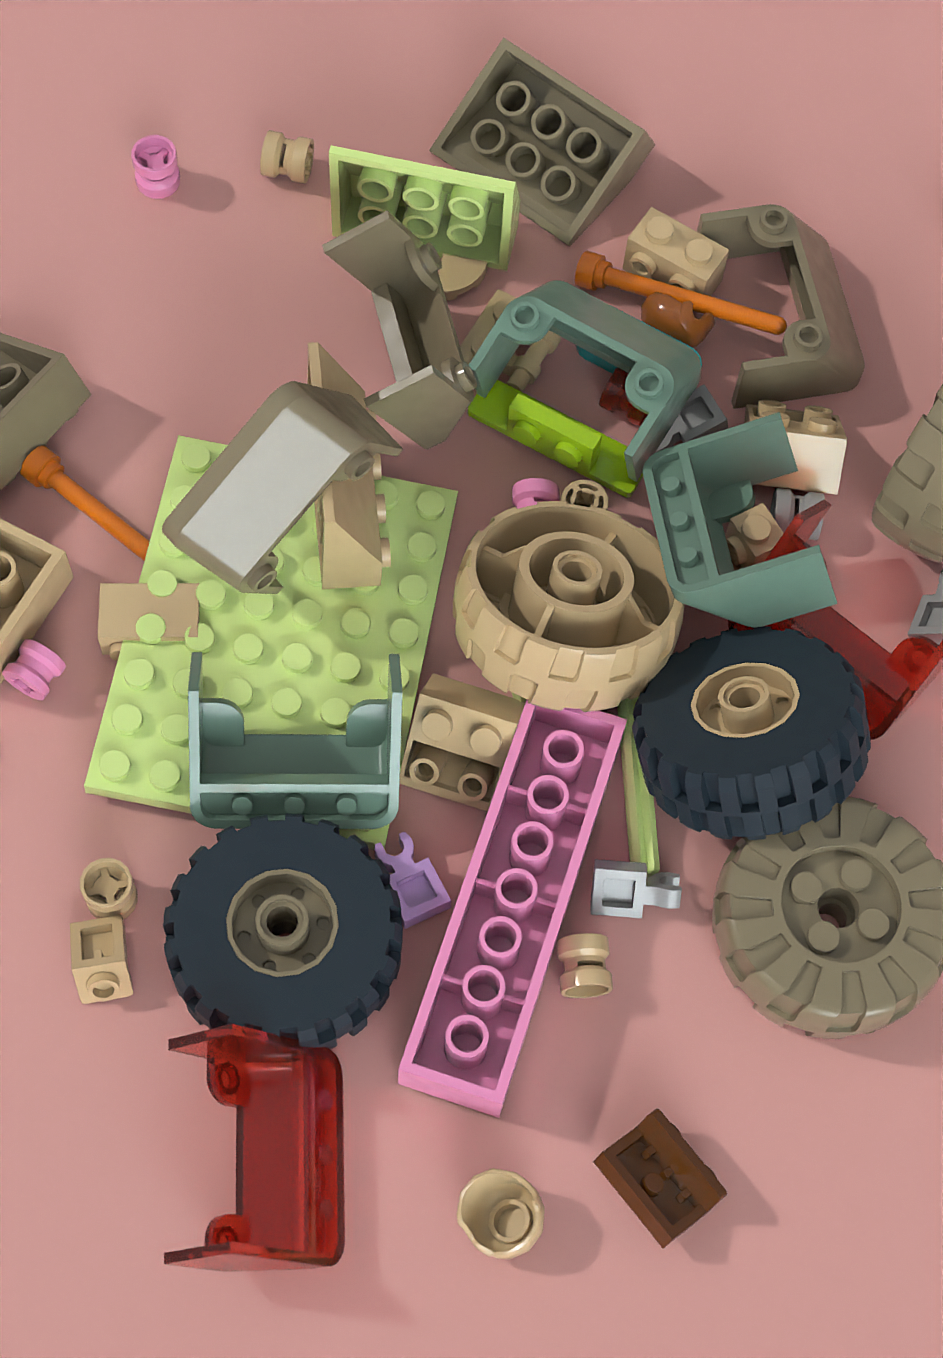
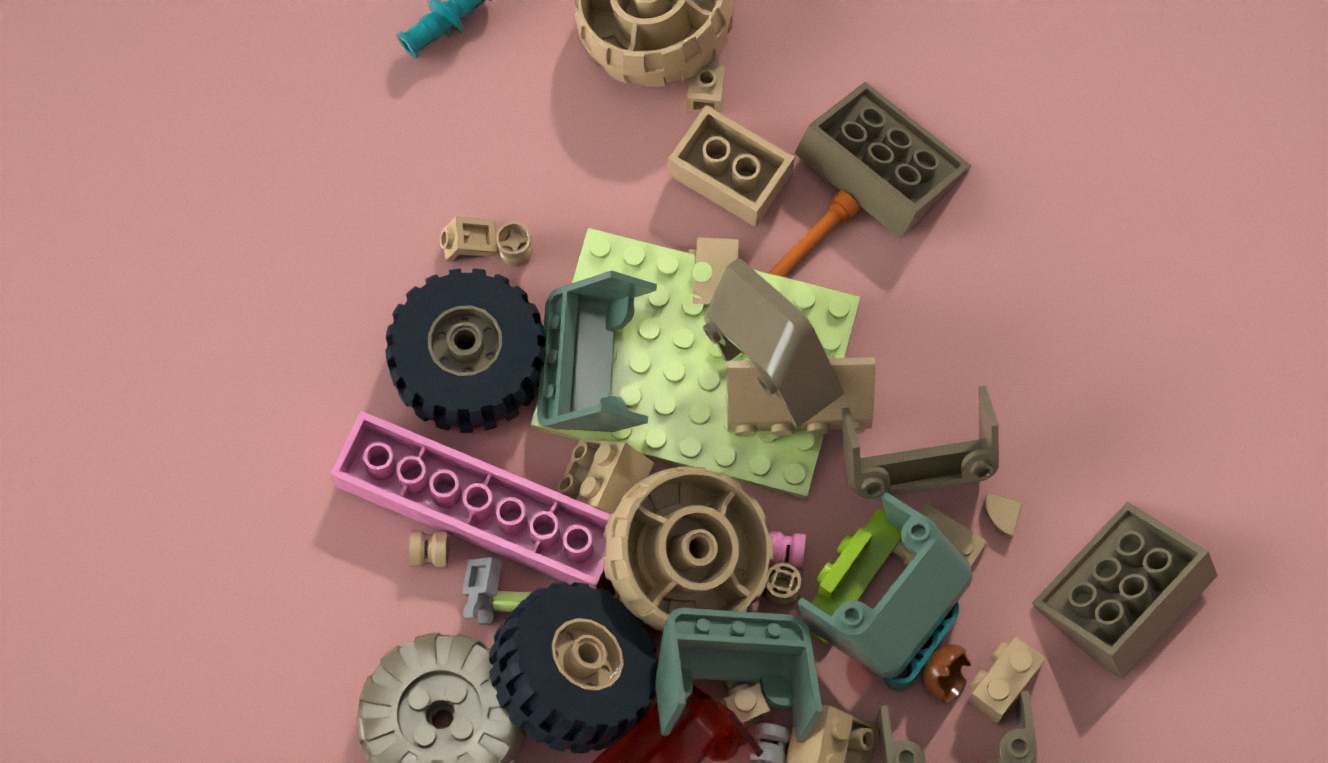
camera: 100 degrees right, 5 degrees up
(34, 669) = (680, 198): bright pink wheel -> none
(155, 166) = (1110, 282): bright pink wheel -> none
(285, 1152) = (317, 350): clear red windscreen -> none
(287, 156) = (1115, 388): tan wheel -> none
(416, 883) = (499, 441): lavender plate -> none
(439, 205) = (1056, 484): yellowish green slope -> none
(501, 1213) = (267, 477): tan hair -> none
(596, 273) = (999, 619): orange piece -> none
(660, 1178) = (277, 581): reddish brown bracket -> none
(697, 419) = (858, 680): light grey plate -> none

